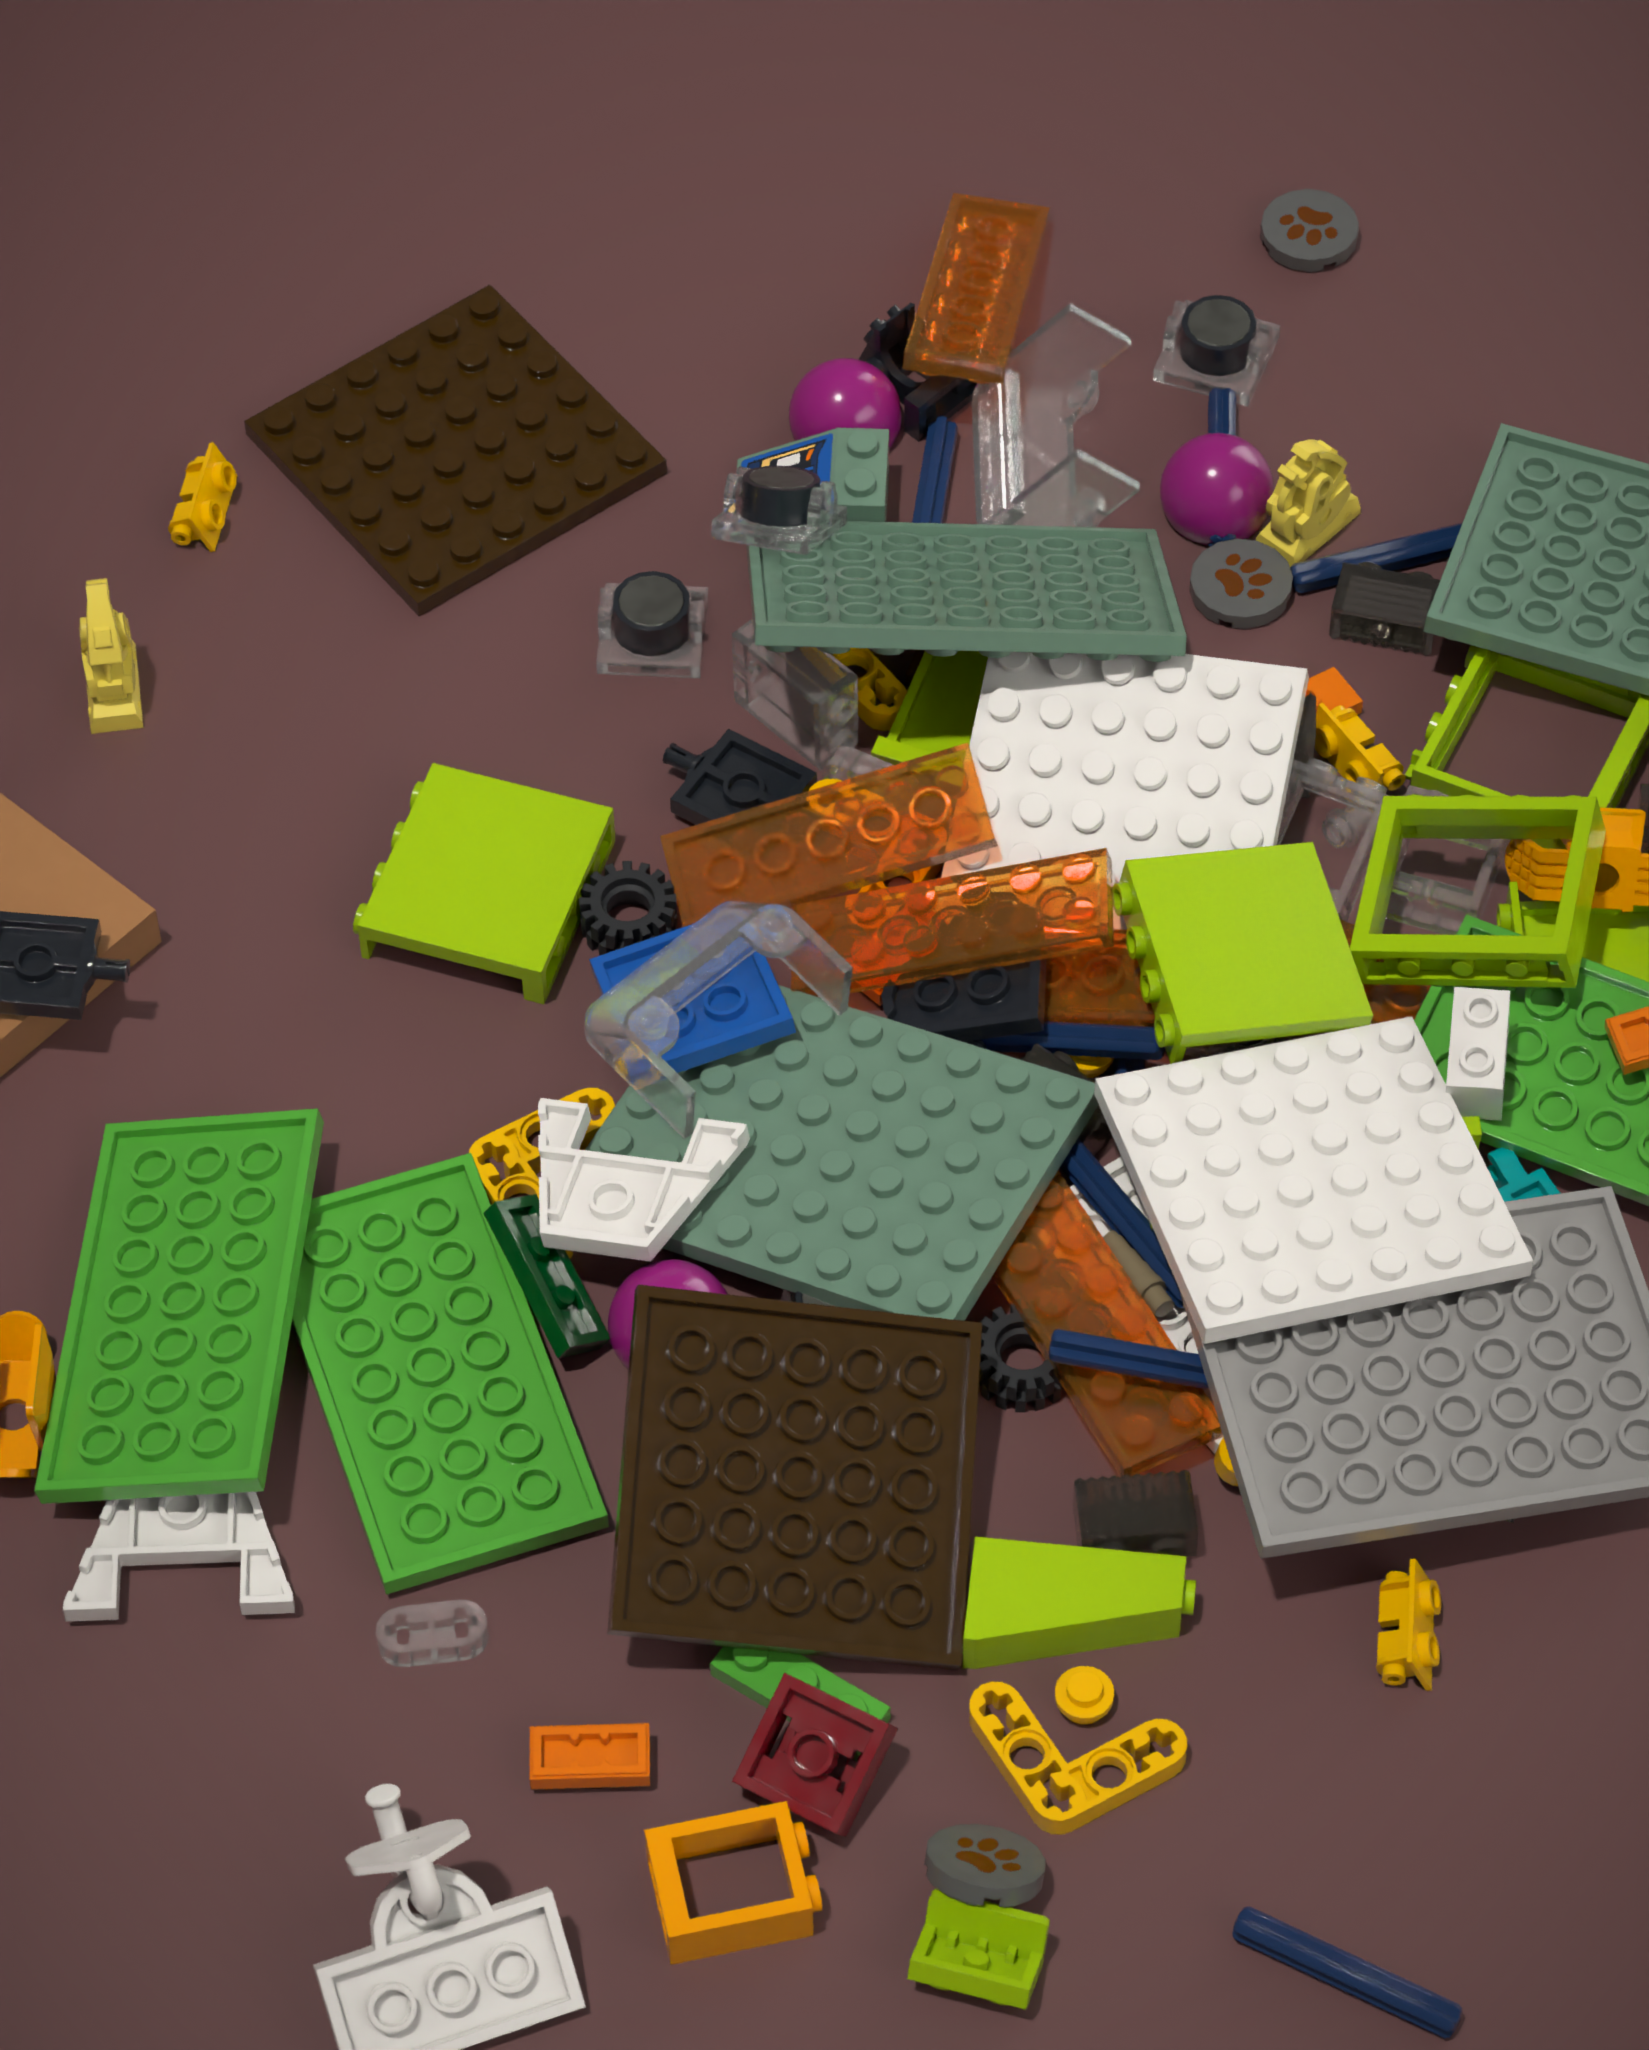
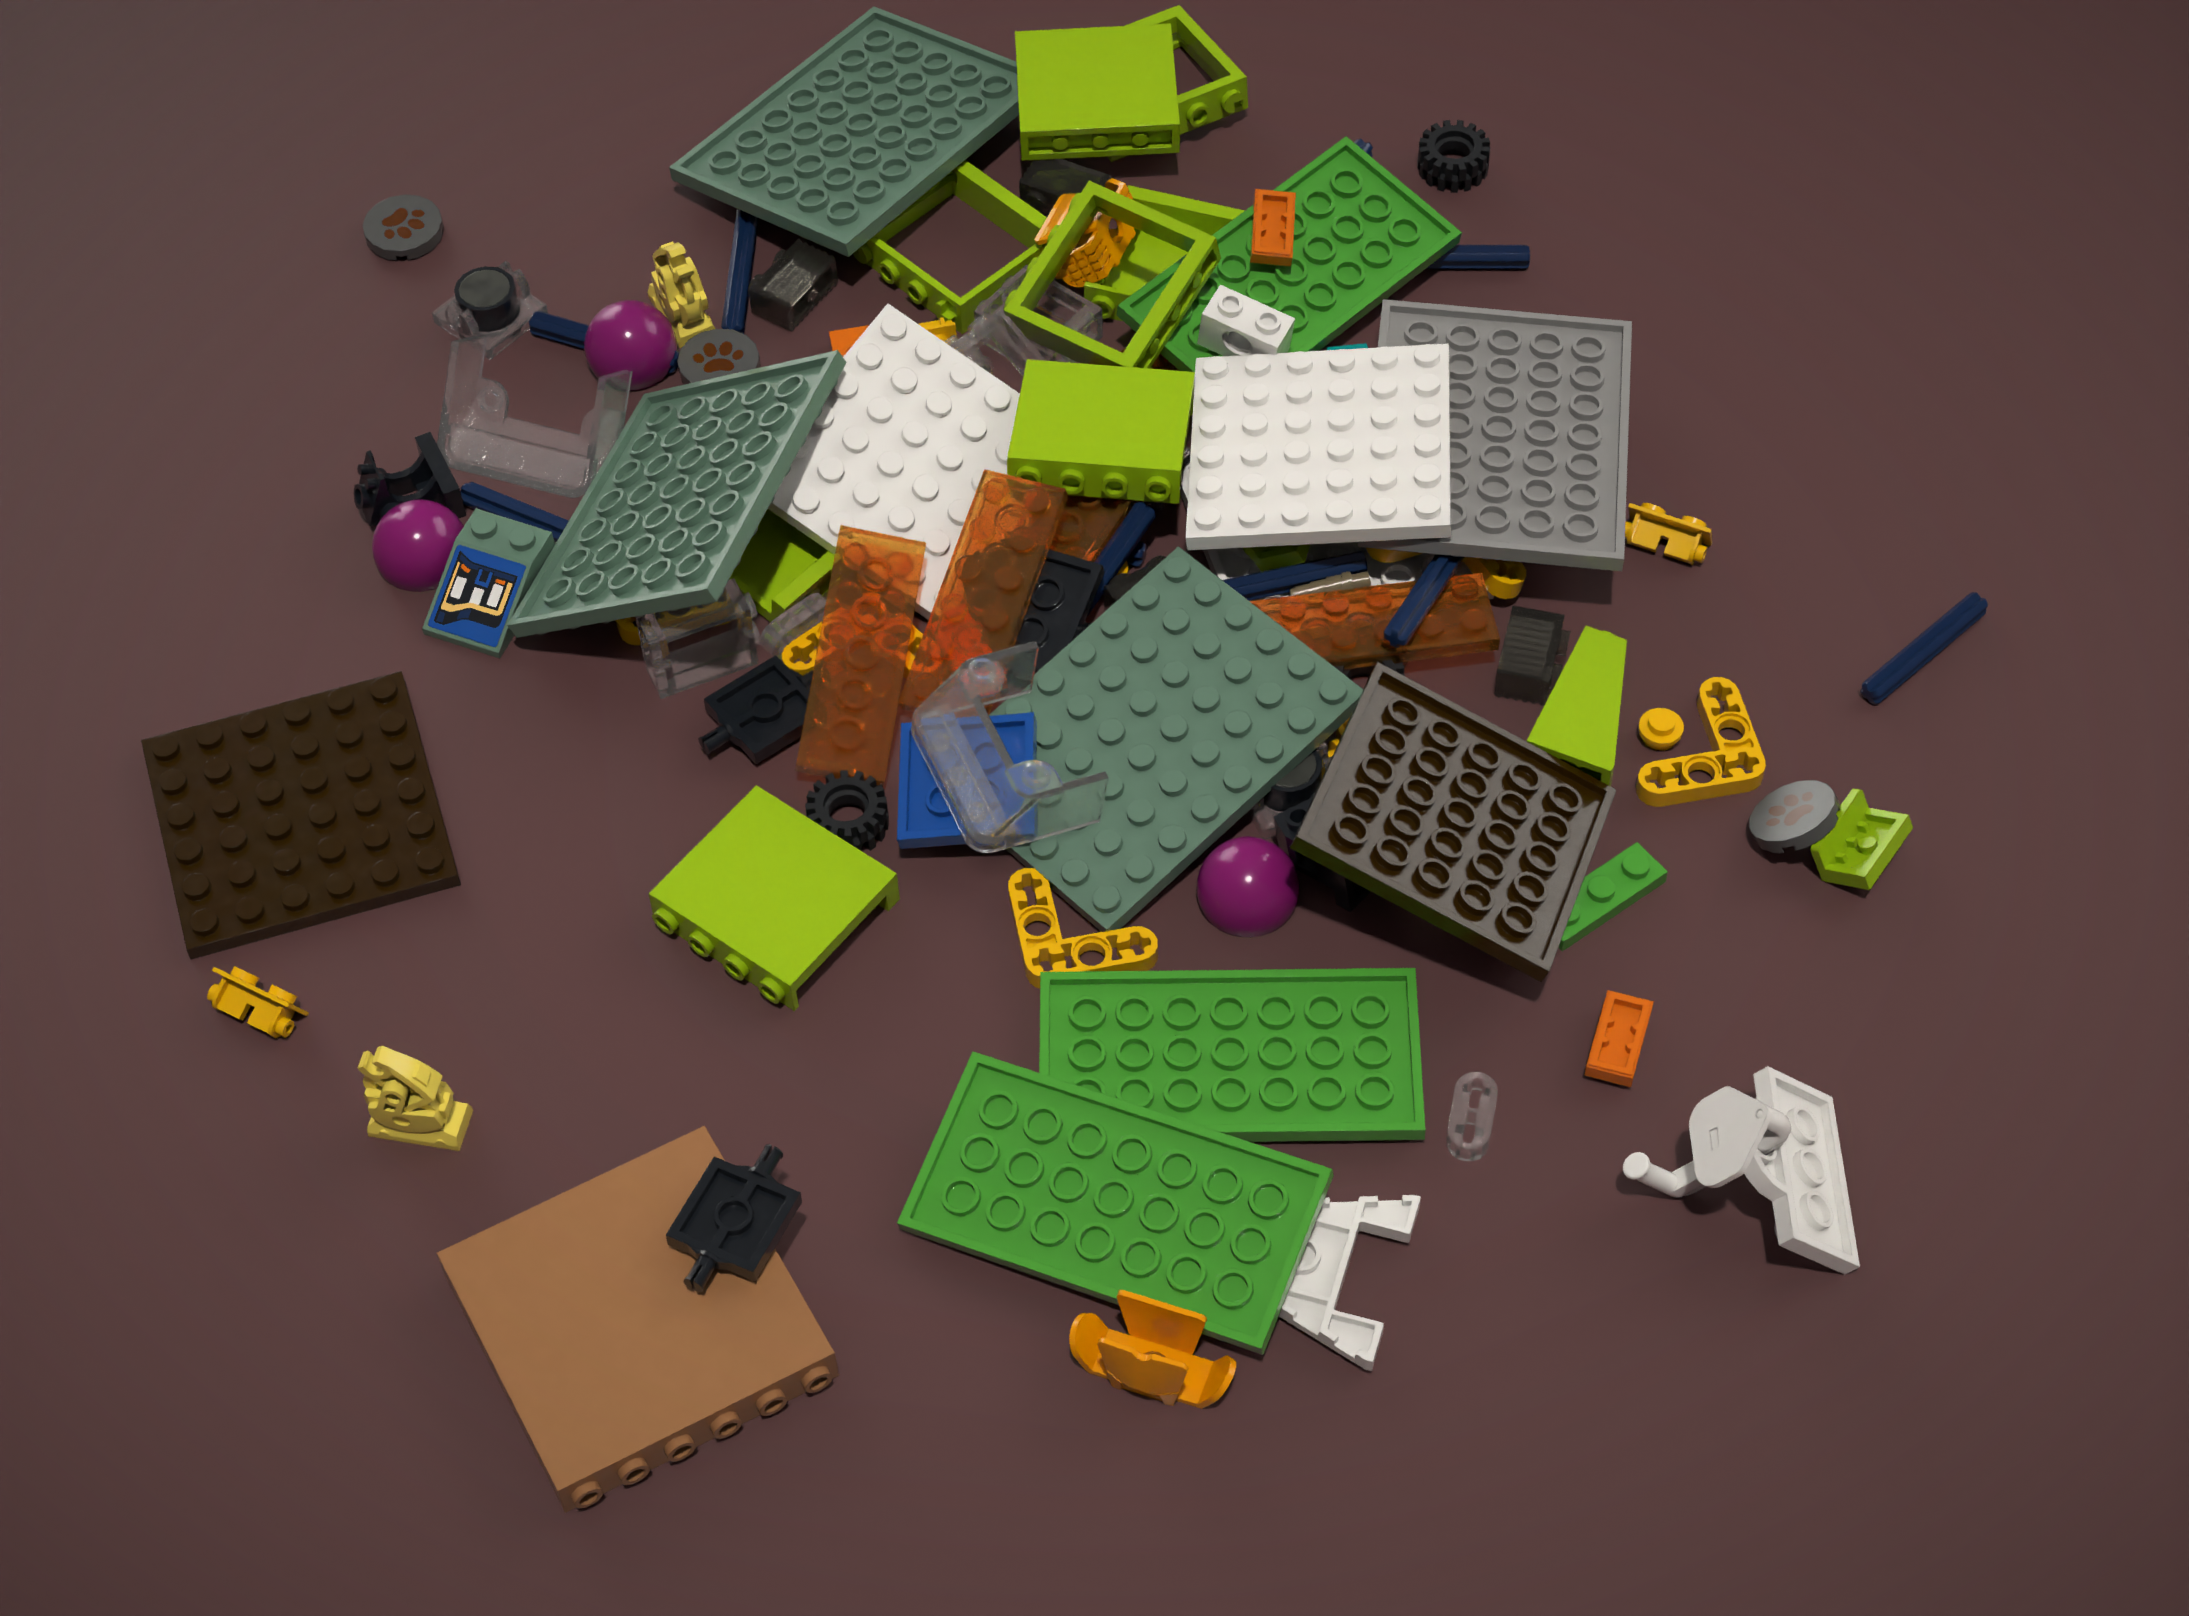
camera: 70 degrees left, 0 degrees up
(546, 1278) = (1184, 948): dark green plate -> none
(622, 1201) = (1147, 877): white wing -> none
(652, 627) = (565, 725): piece -> none
(738, 1928) = (1754, 1013): light orange window -> none
(778, 509) = (534, 587): piece -> none
(810, 1752) = (1689, 902): dark red brick -> none
(976, 289) = (361, 417): clear orange plate -> none

